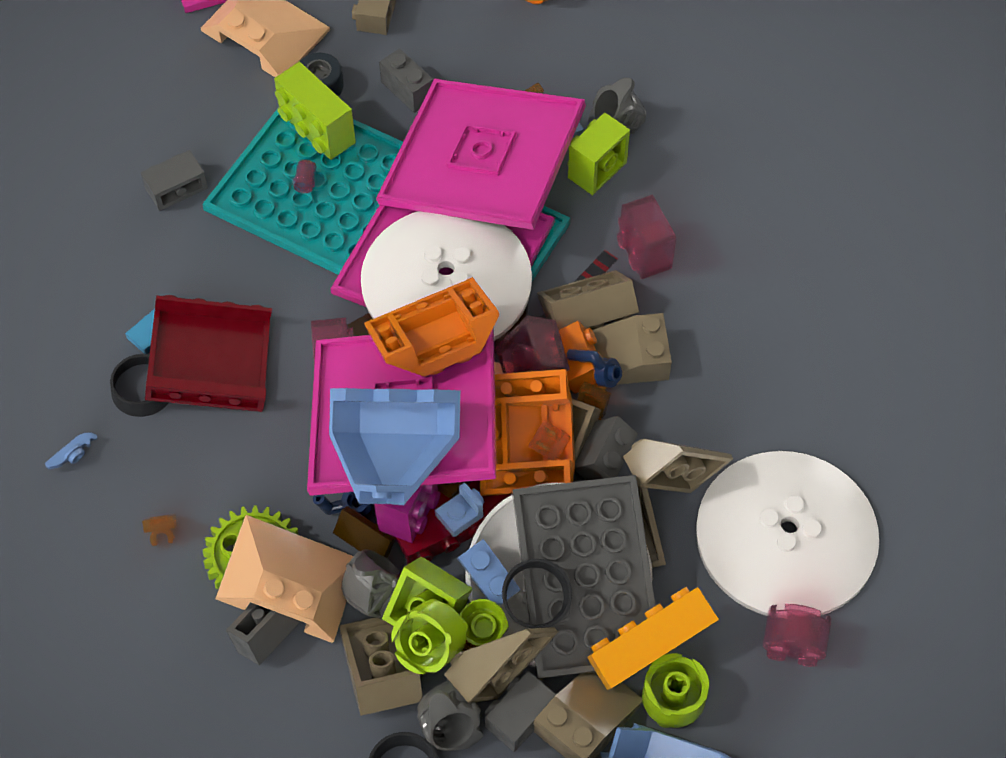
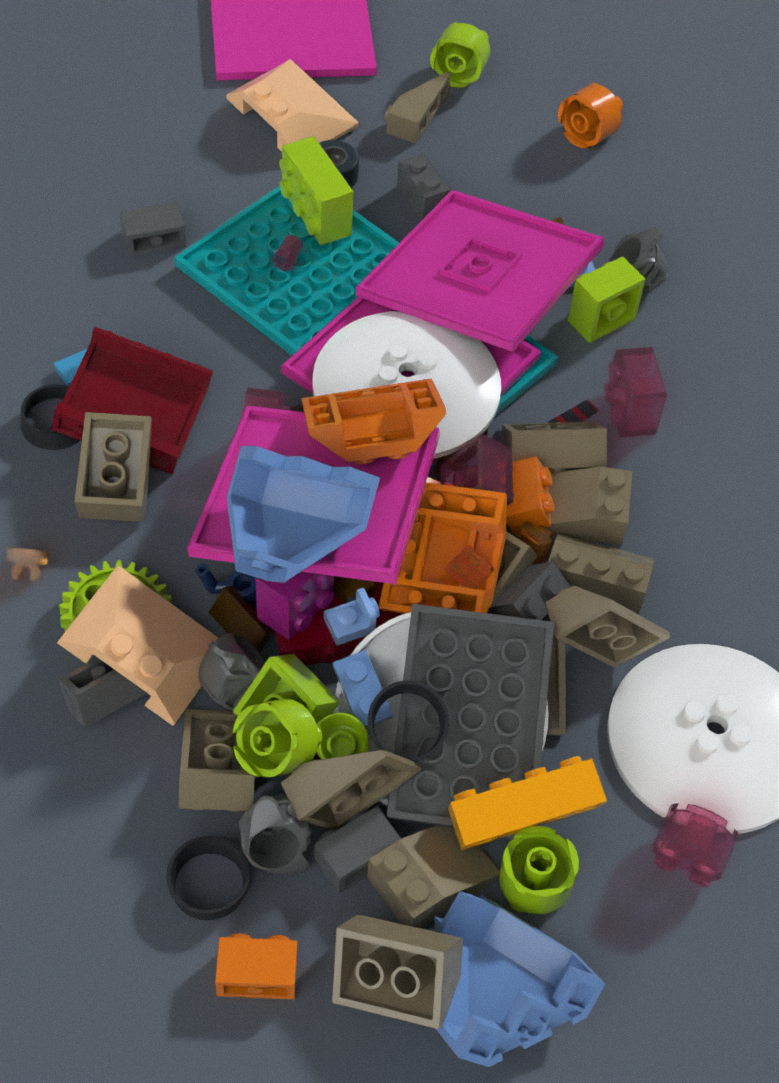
camera: 10 degrees right, 5 degrees down
(212, 422) = (113, 467): none -> dark tan slope
(606, 371) = (553, 515): dark blue plate -> none
(660, 409) = (603, 570): none -> dark tan slope

